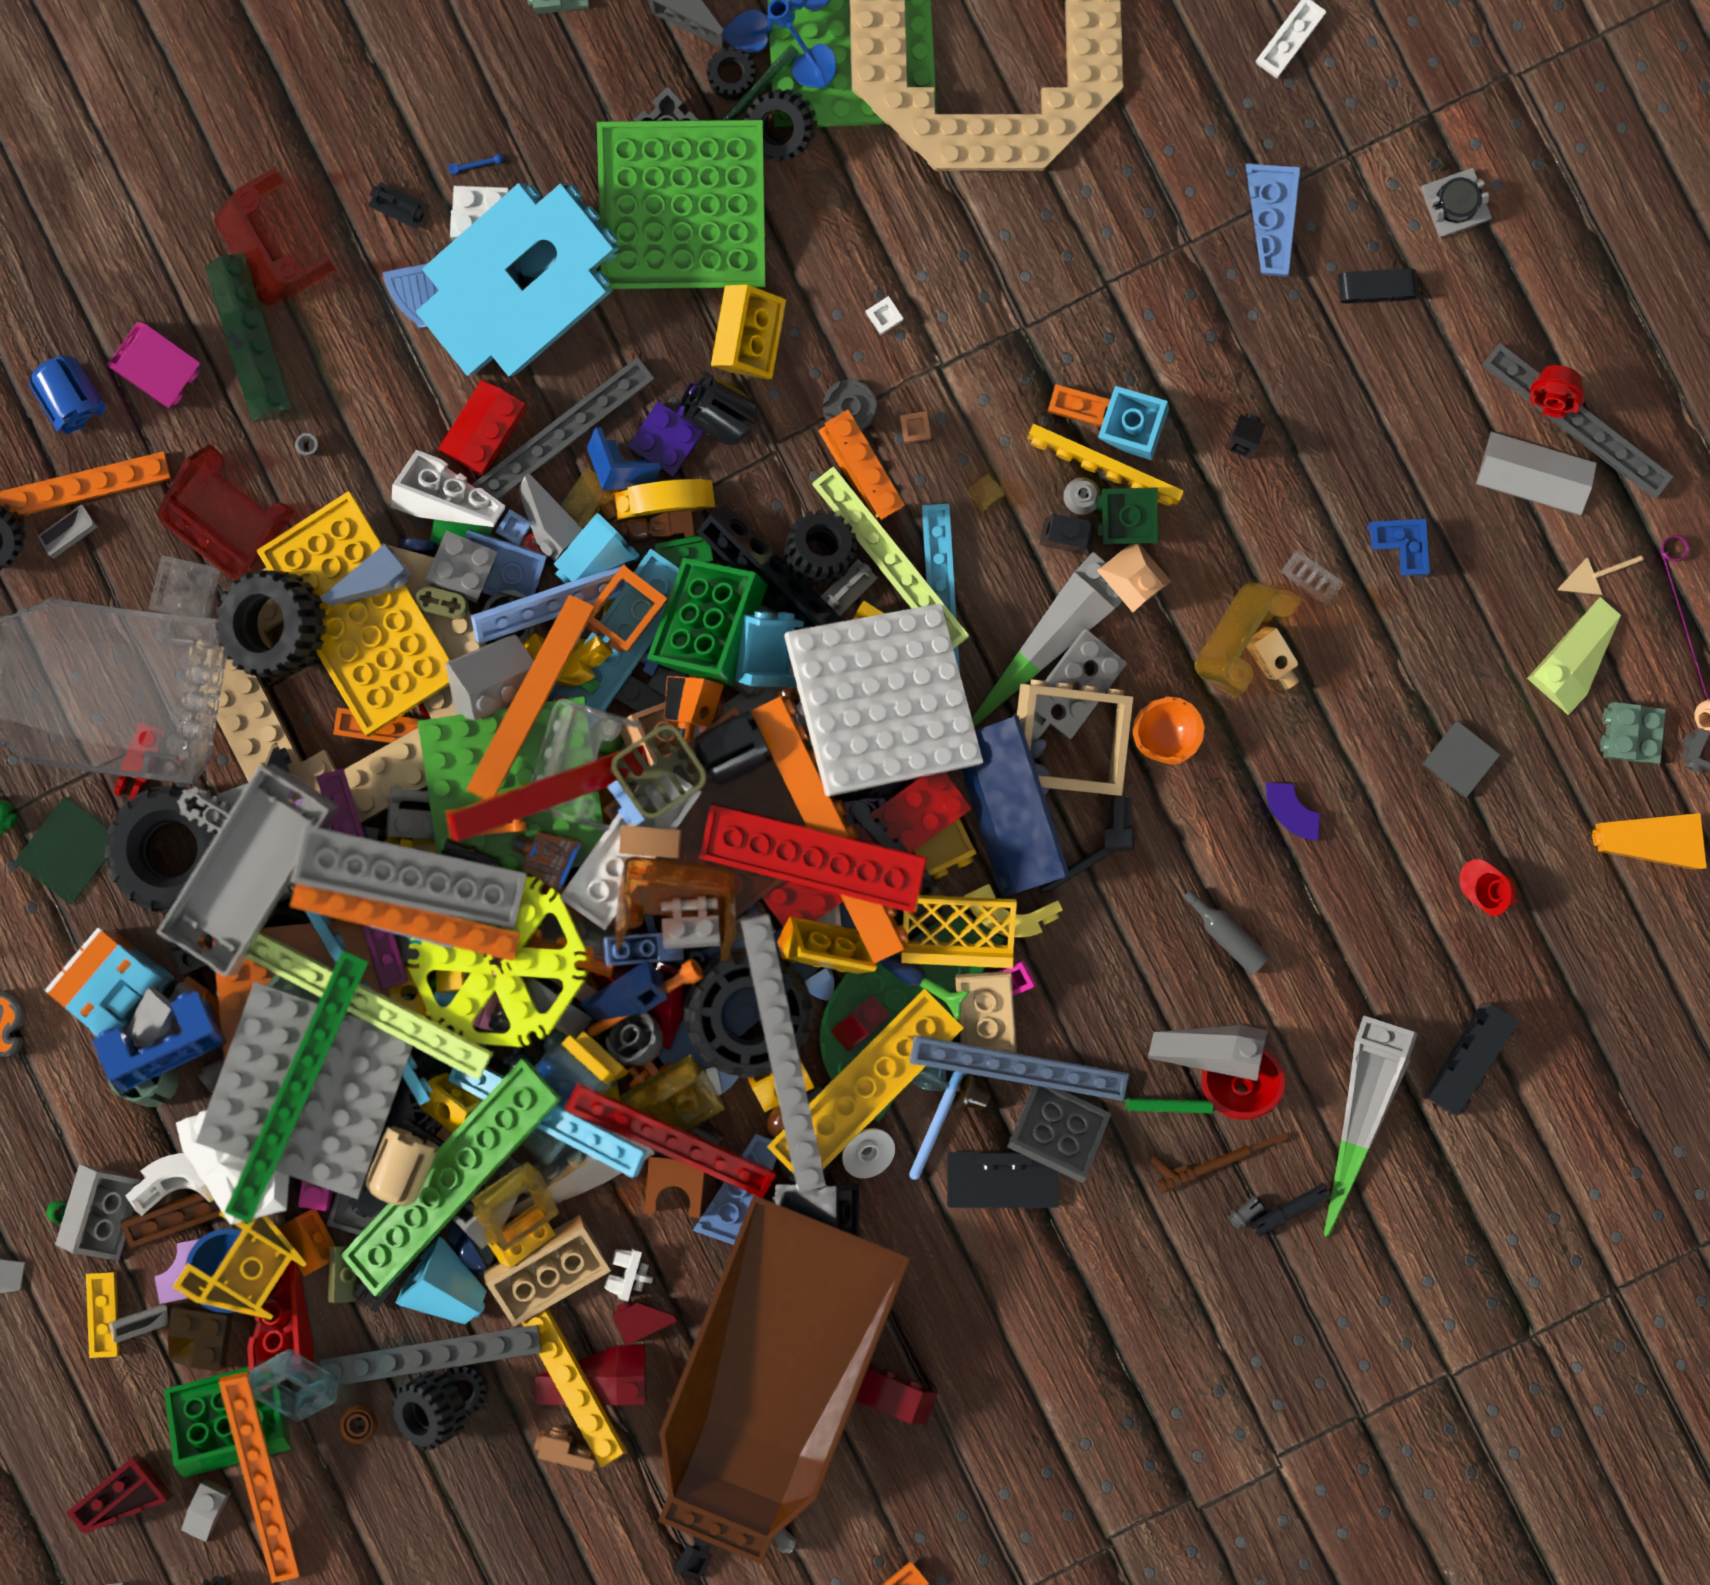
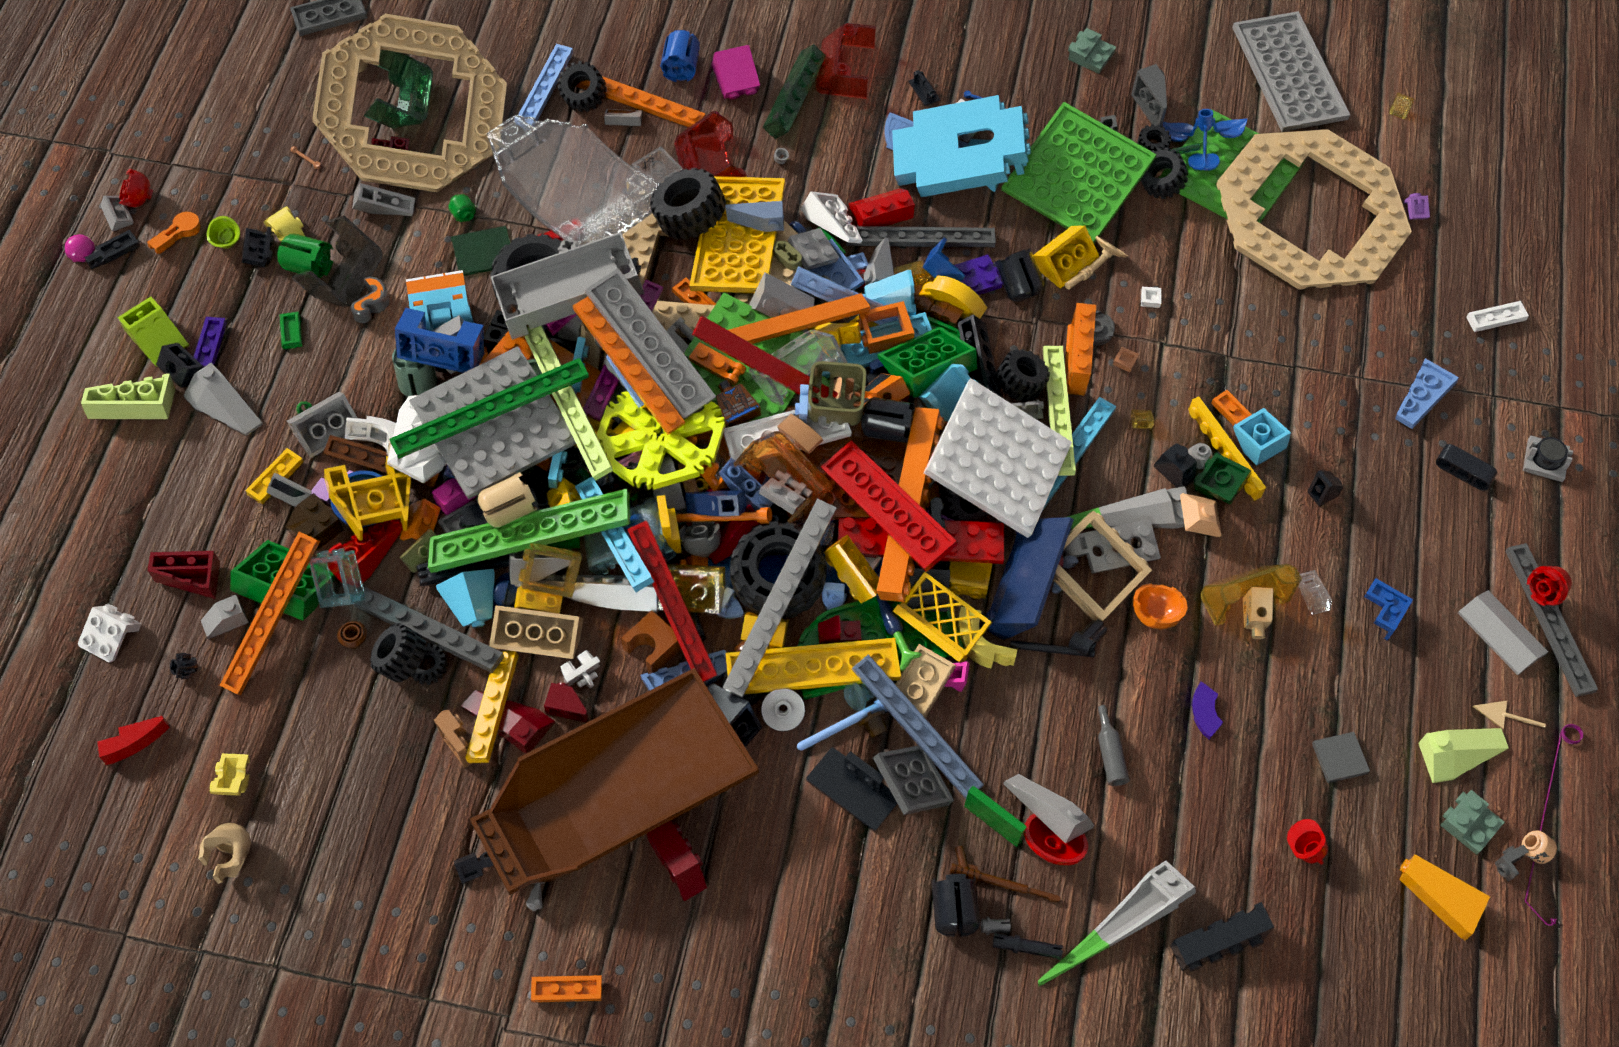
camera: 40 degrees right, 25 degrees down
(791, 280) = (1087, 272): none -> tan dish
(1186, 1237) = (966, 904): none -> black cylinder

